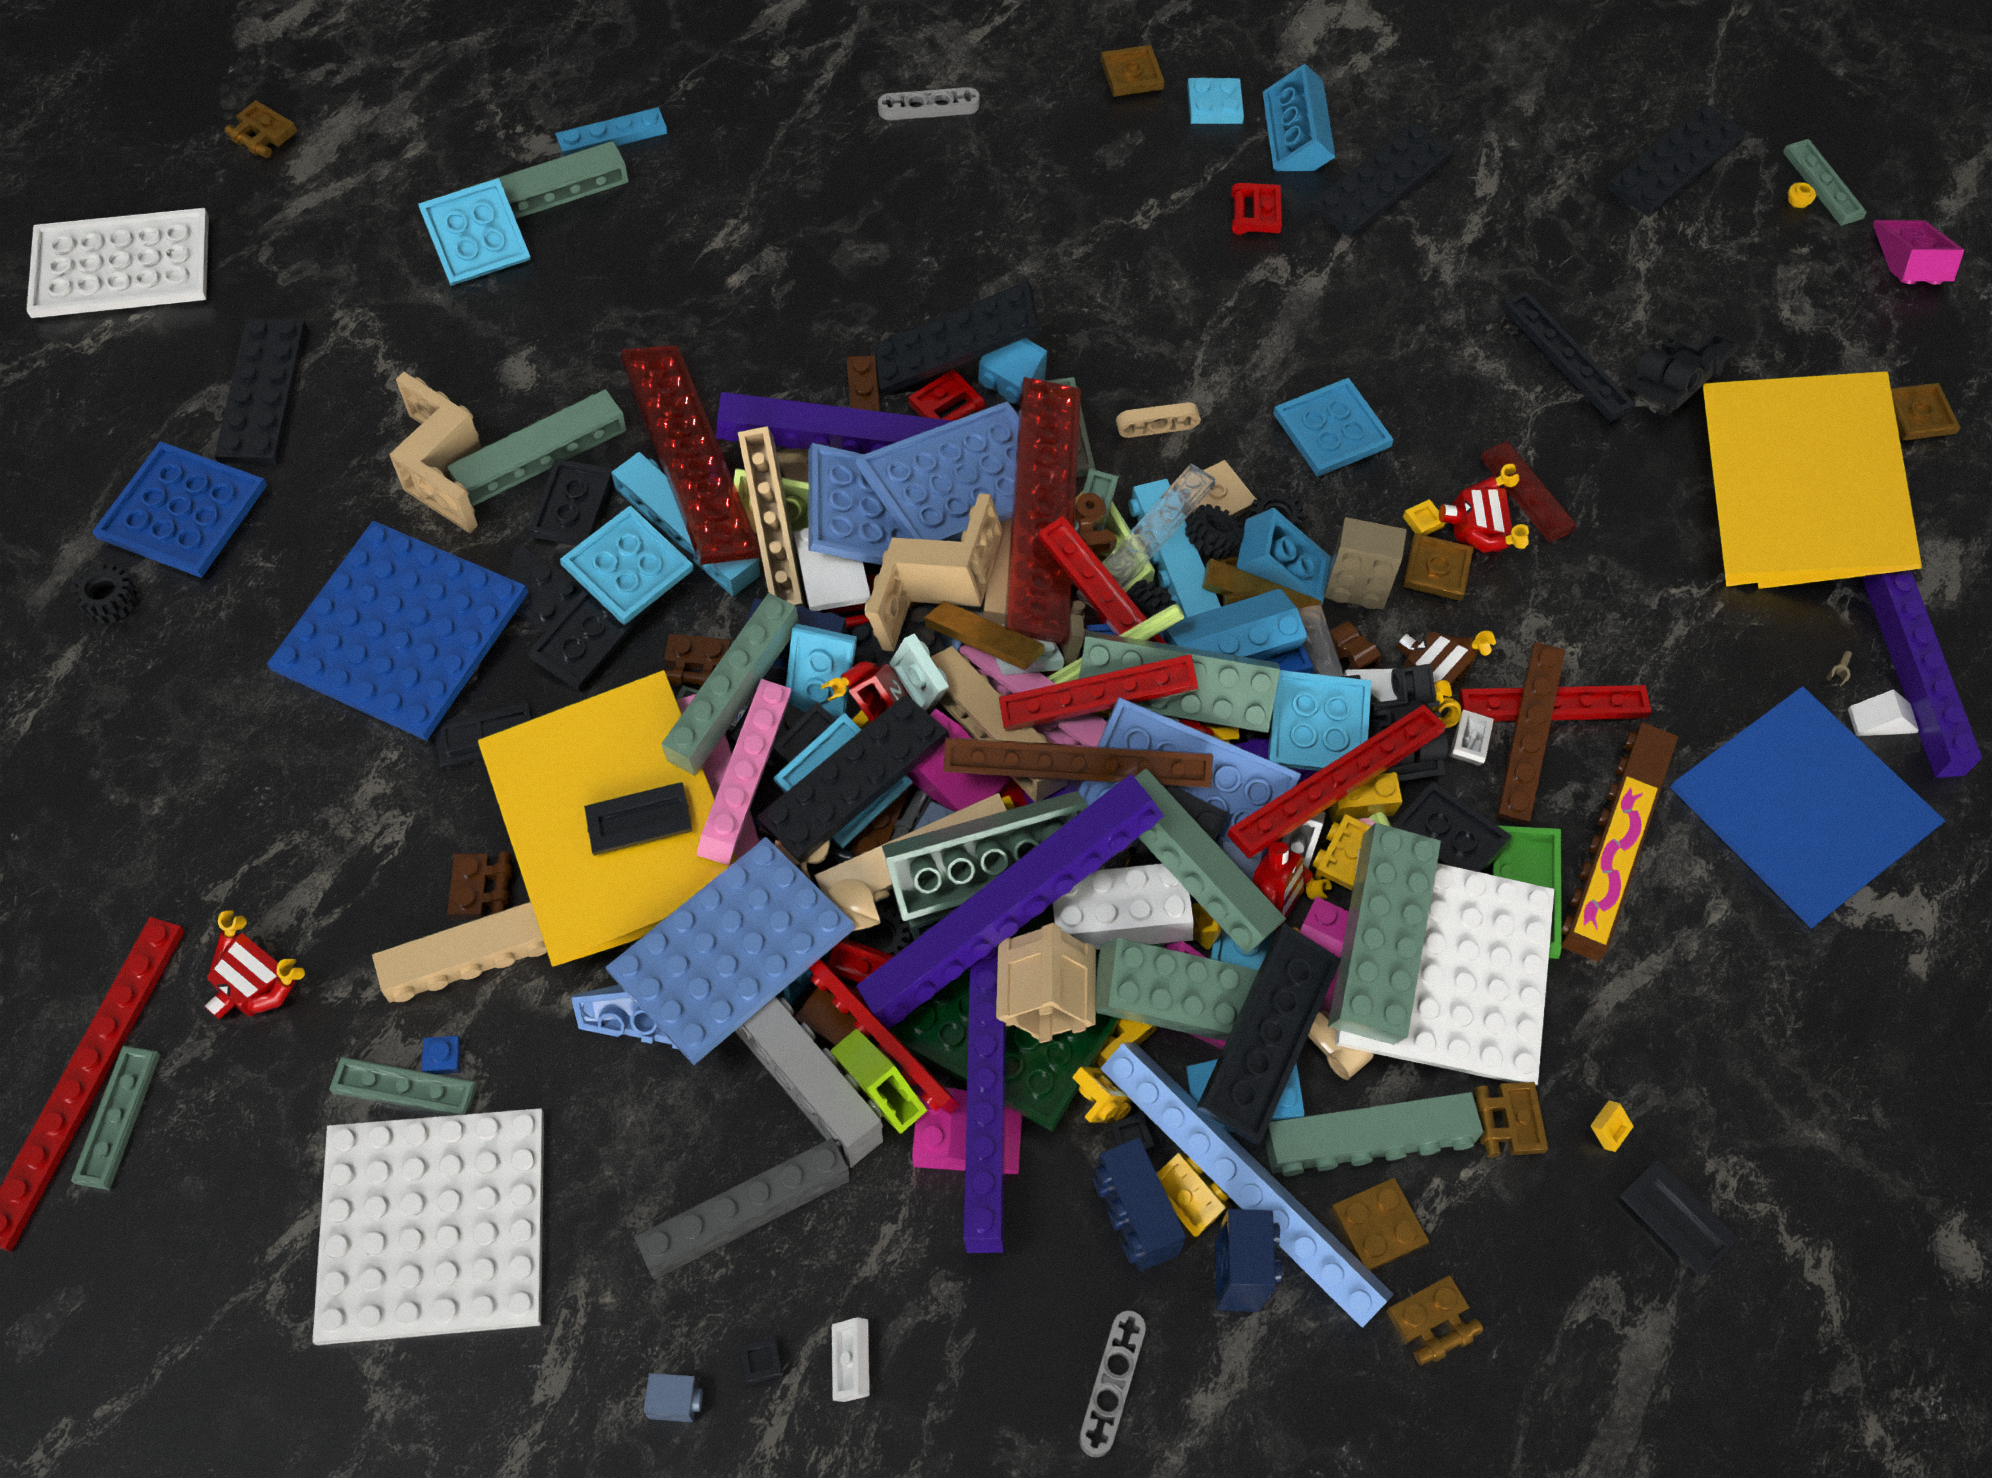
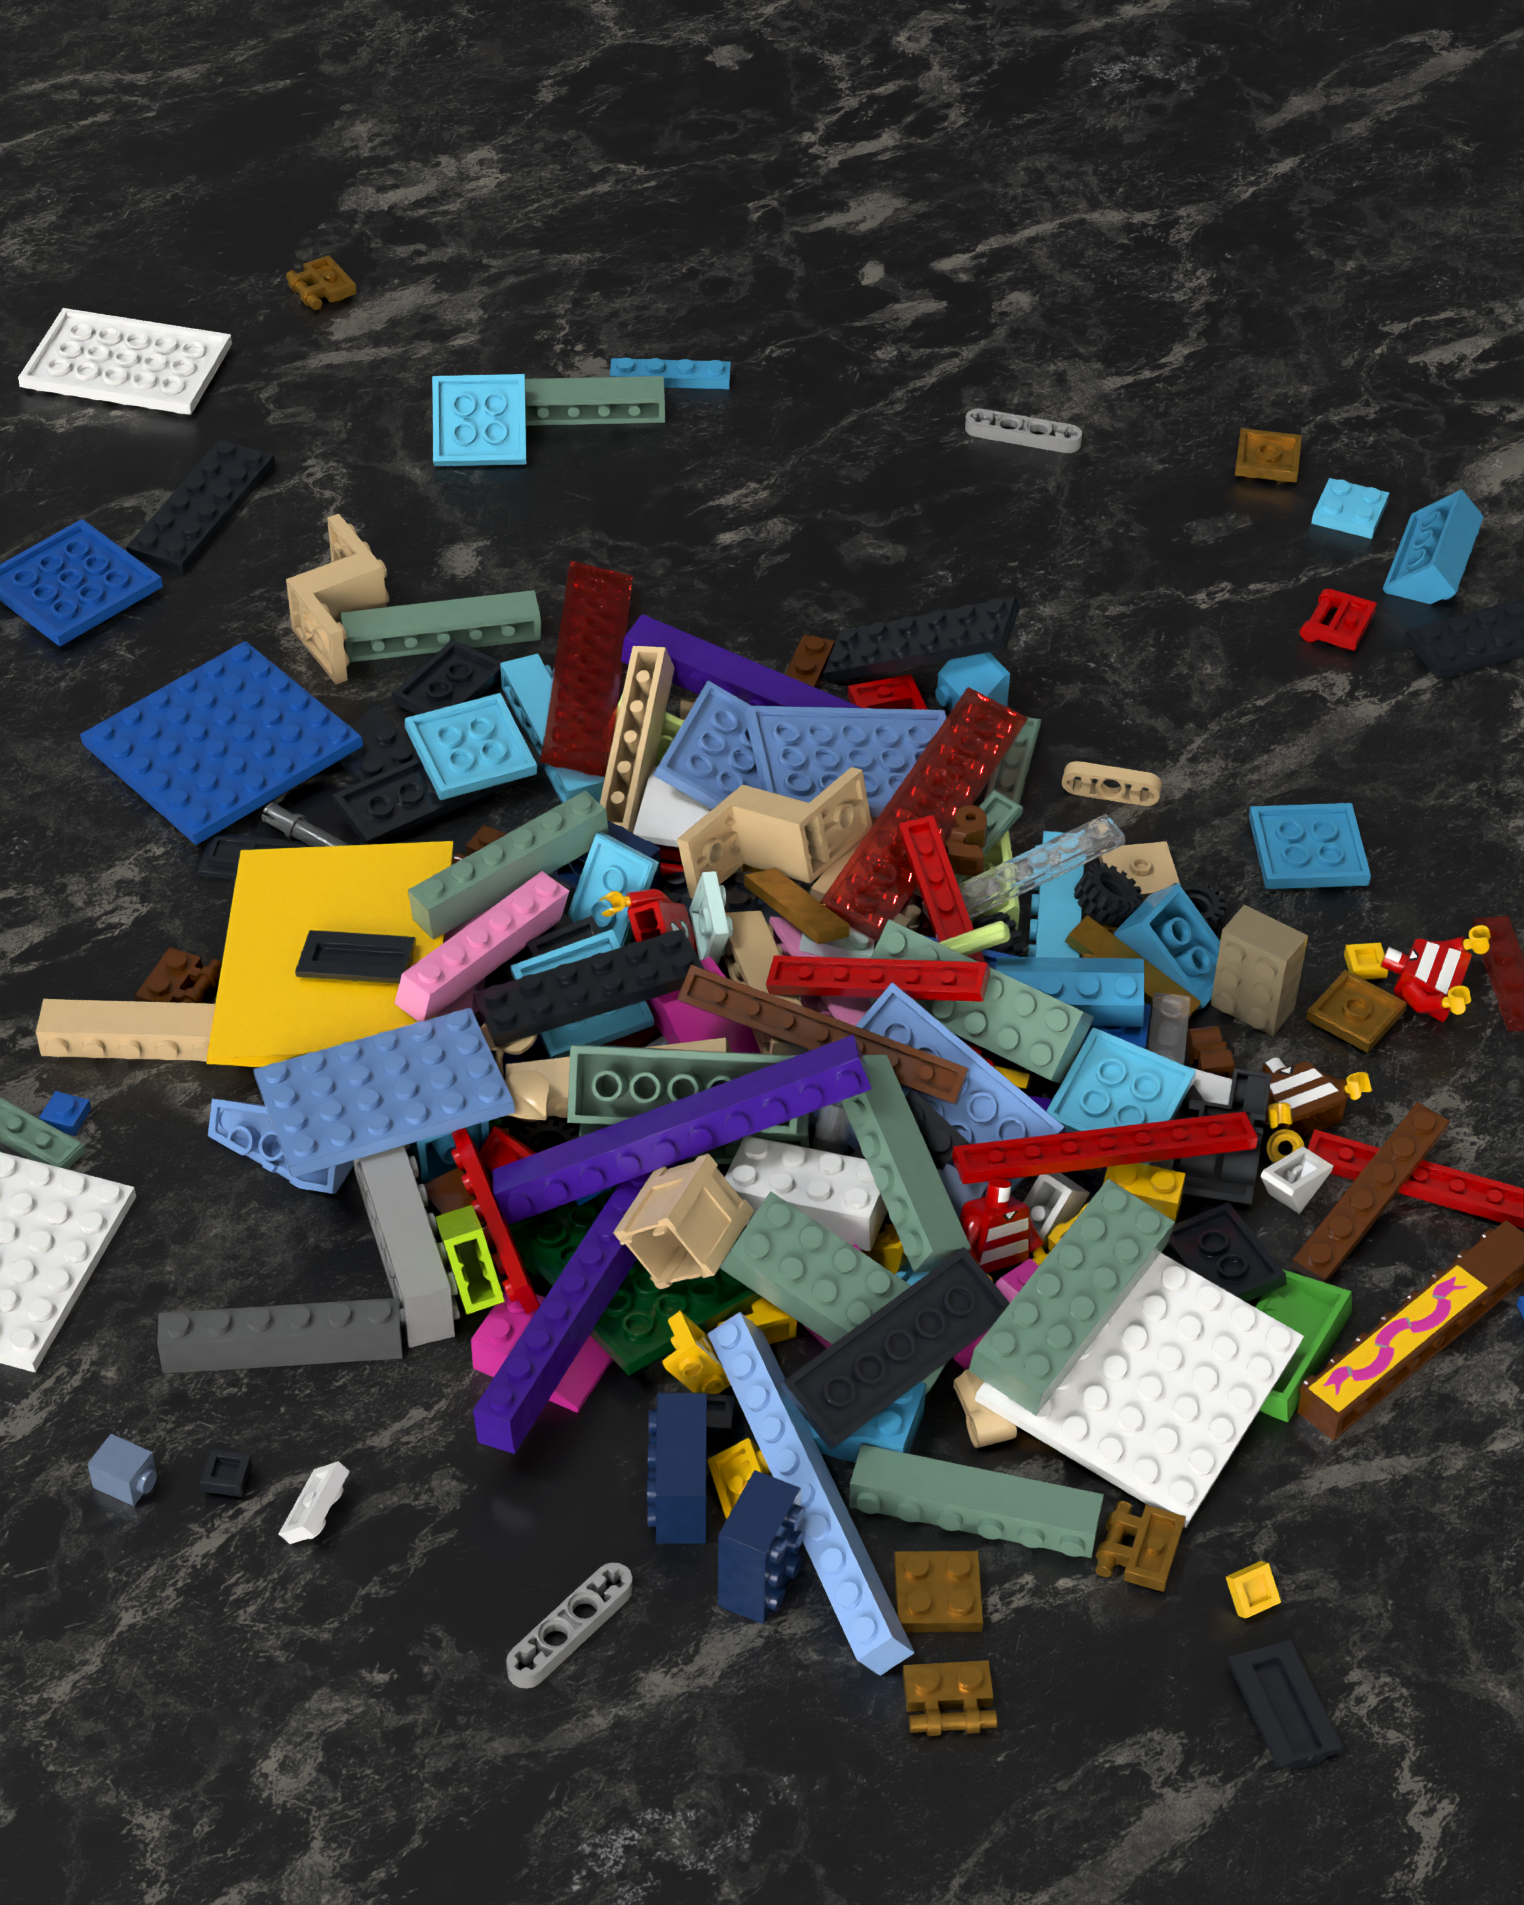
camera: 25 degrees right, 15 degrees down
(509, 692) = (298, 828): none -> dark grey pin

